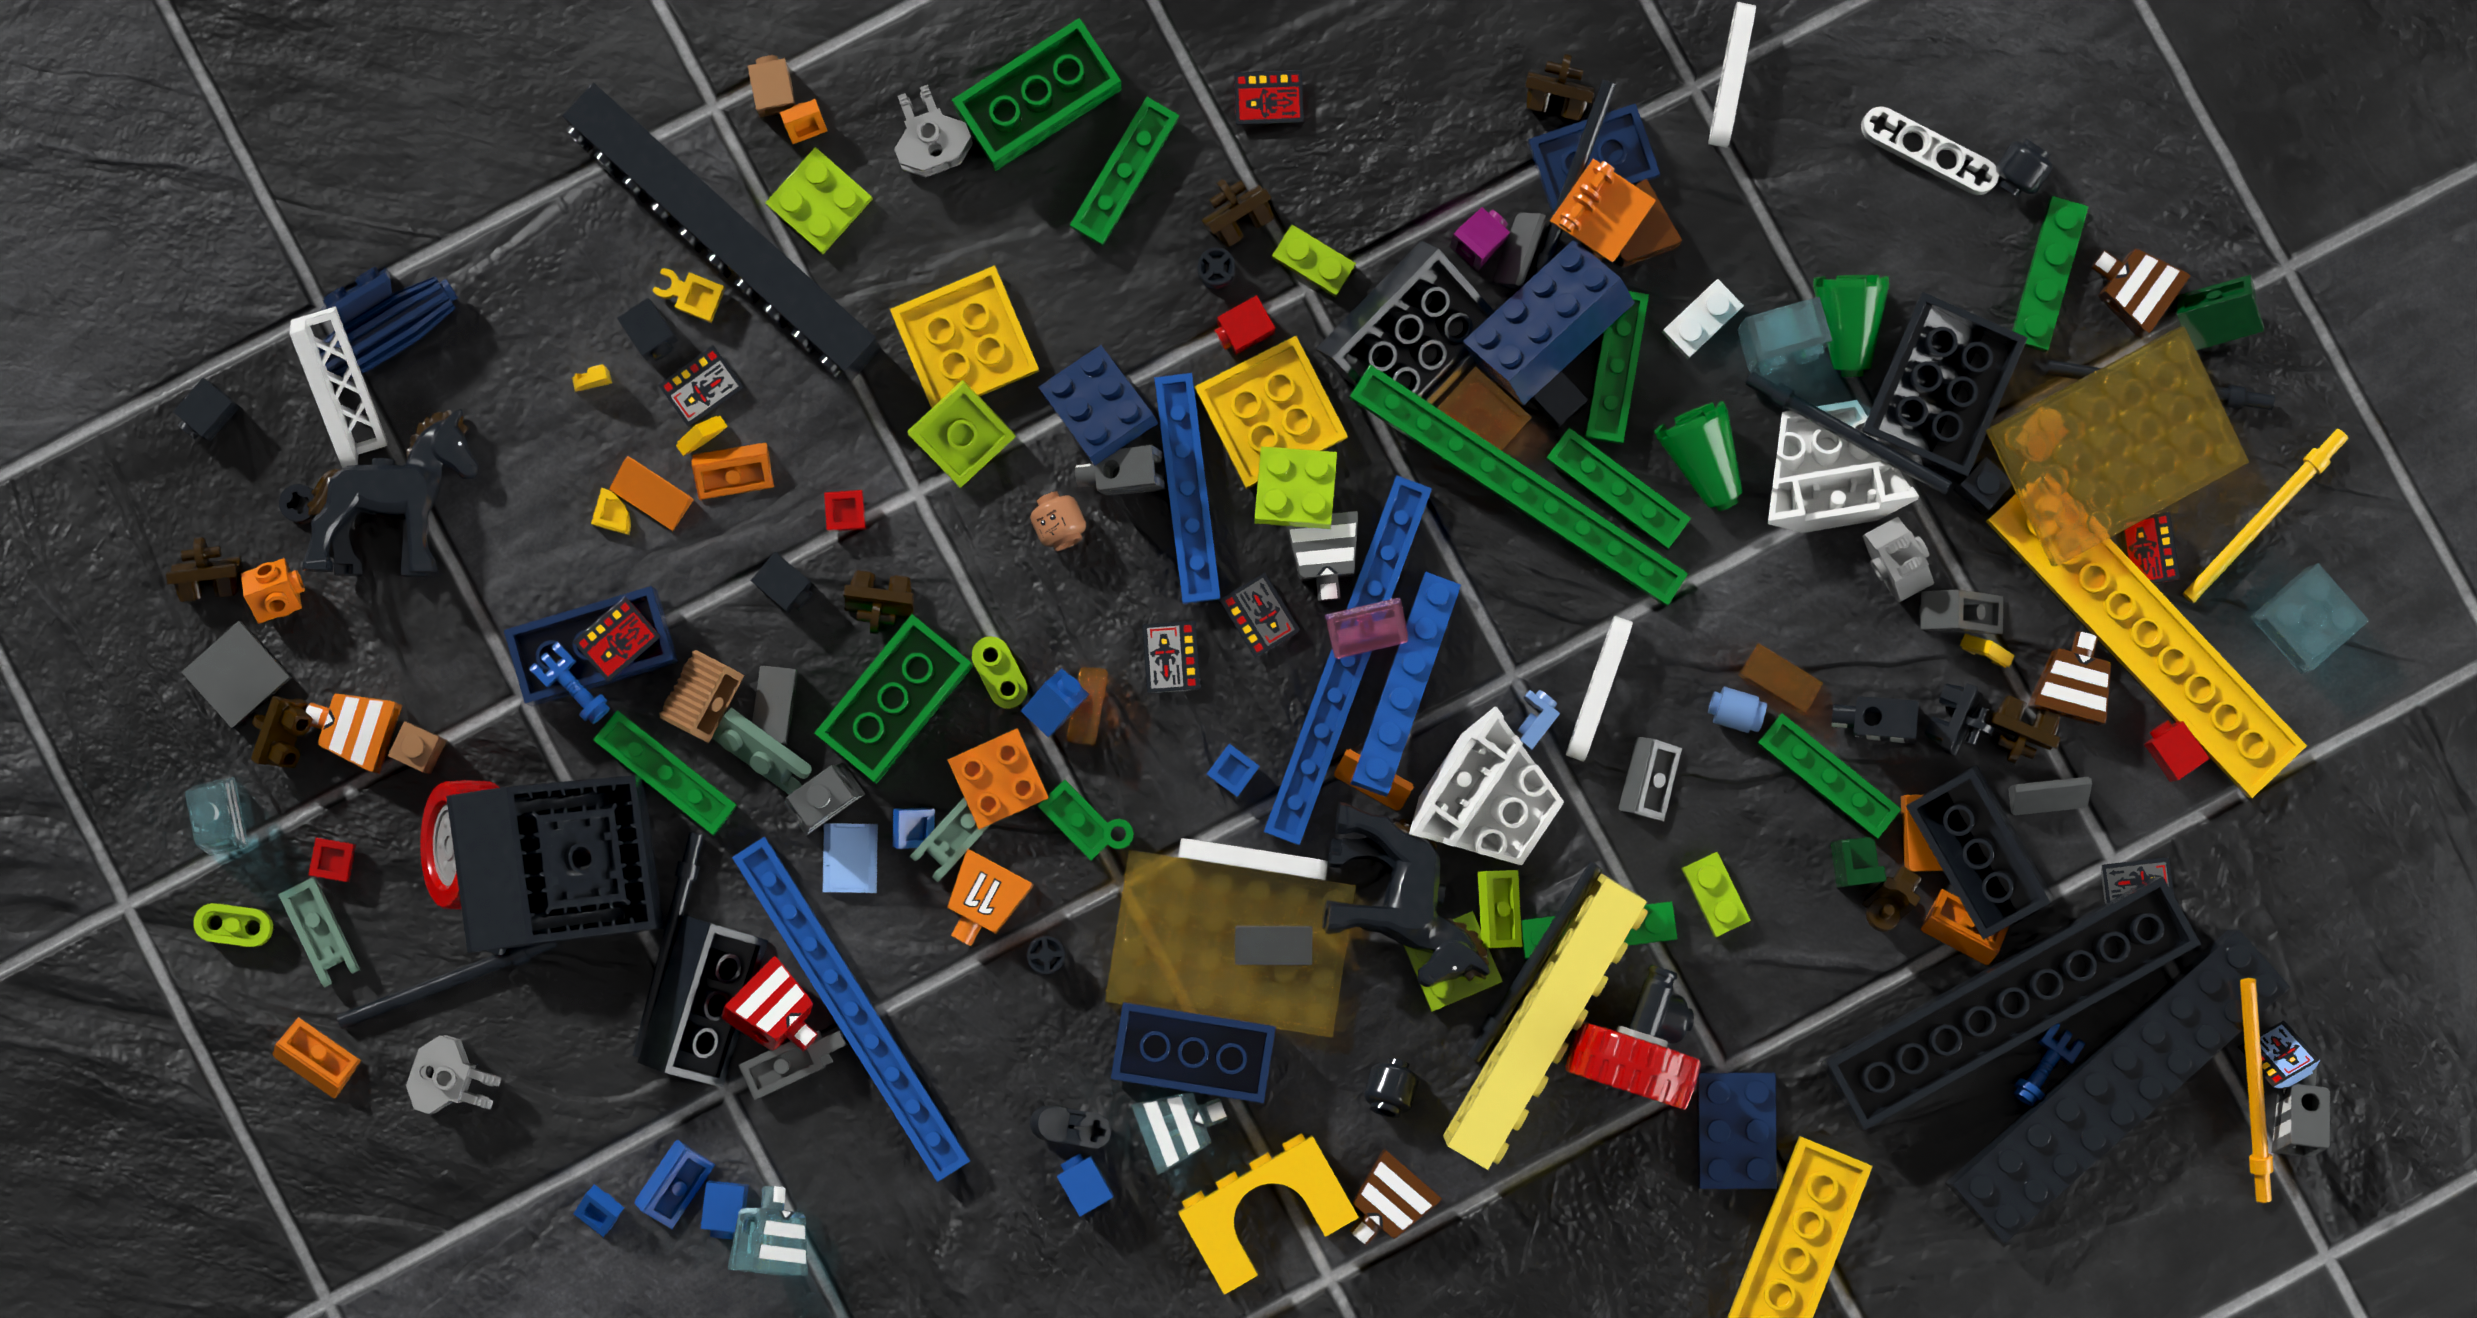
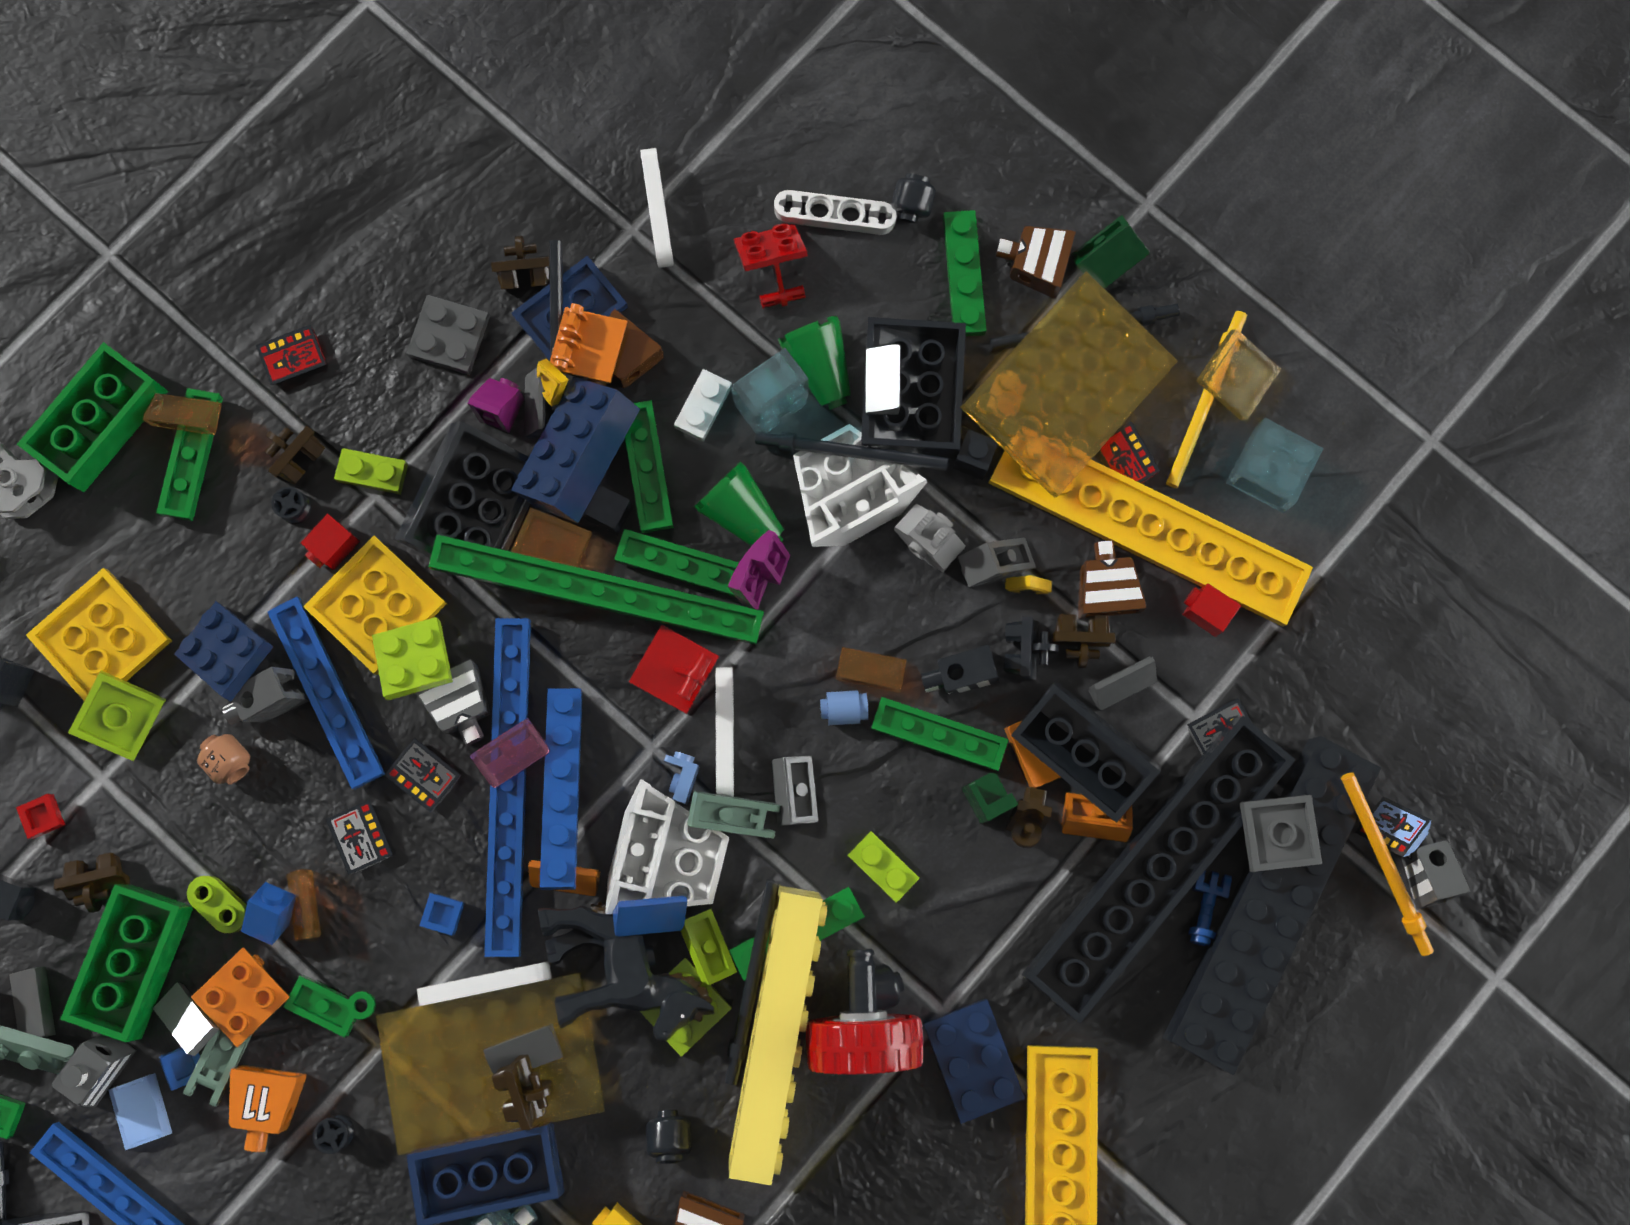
camera: 20 degrees left, 5 degrees down
(933, 780) = (185, 1019): none -> dark grey tile
(1136, 126) = (183, 413): none -> clear orange slope
(1268, 984) = (526, 1092): none -> dark brown hips
(1449, 136) = (448, 334): none -> dark grey plate
(1456, 852) = (649, 915): none -> blue slope
(1550, 238) = (552, 380): none -> yellow tile
(1568, 600) = (674, 669): none -> red plate
(1575, 778) = (730, 814): none -> sand green hinge
(1705, 523) = (761, 564): none -> magenta slope
(1842, 171) = (771, 248): none -> red plate
(1912, 370) = (883, 380): none -> slope
(2153, 1013) = (1280, 833): none -> dark grey plate
(2311, 502) = (1238, 374): none -> clear yellow tile

